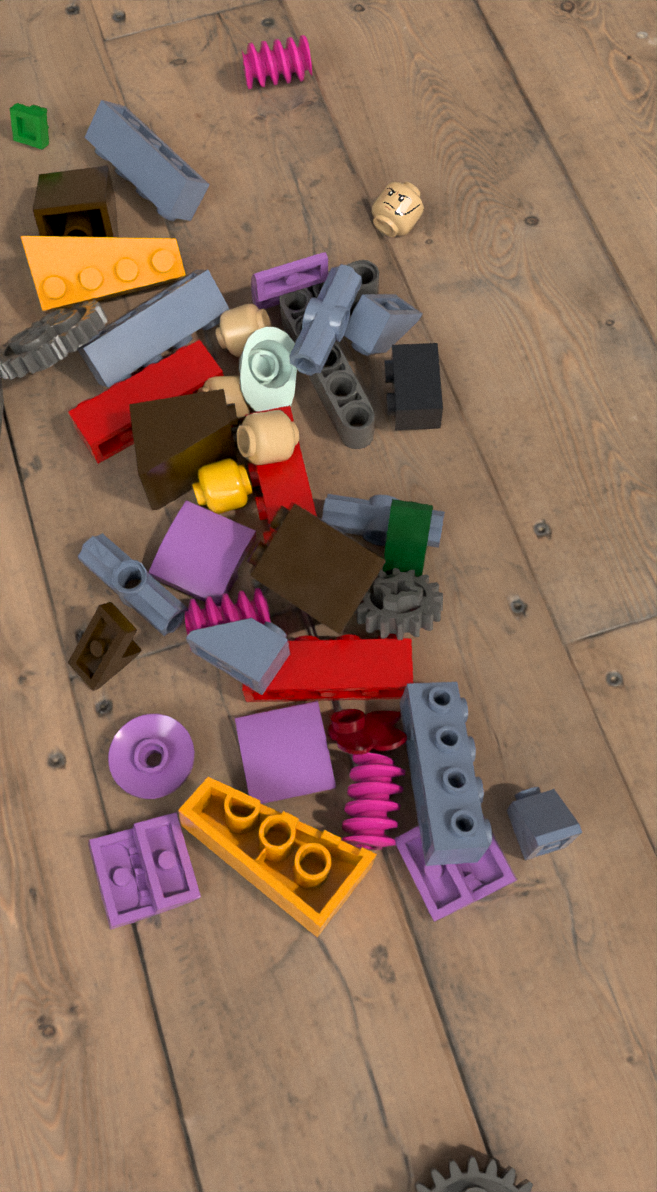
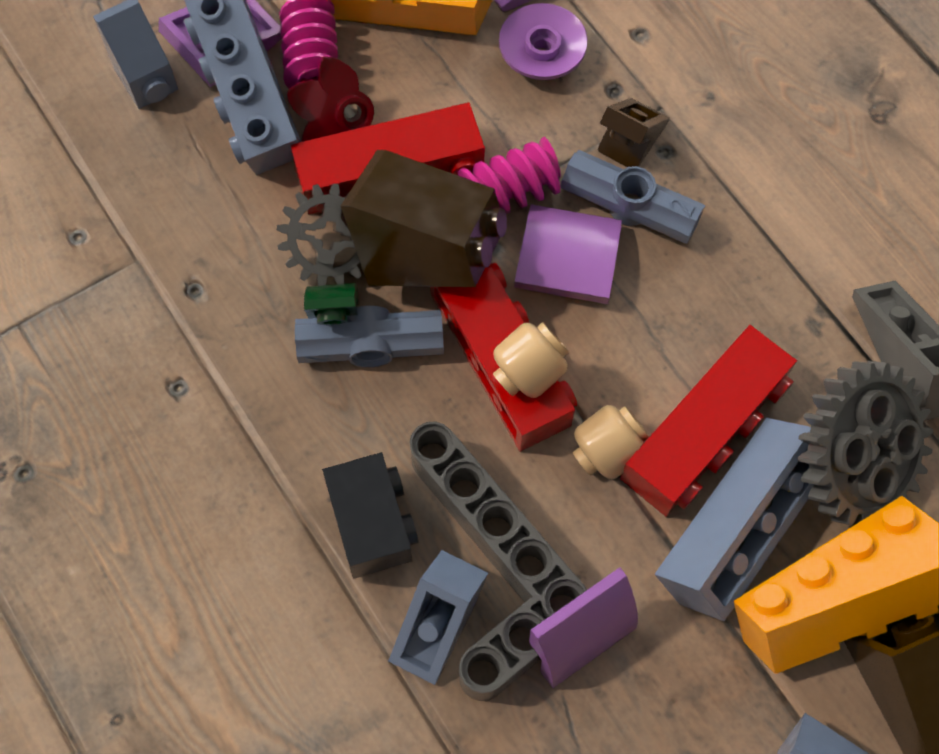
camera: 160 degrees right, 0 degrees up
(178, 438) = (642, 348): dark brown slope -> none
(222, 486) = (576, 322): yellow head -> none
(238, 325) = (624, 544): tan head -> none
(243, 650) = (479, 118): sand blue slope -> none
(266, 370) = (568, 484): light aqua piece -> none
(285, 752) = (412, 76): medium lavender slope -> none
(325, 320) = (508, 555): sand blue piece -> none

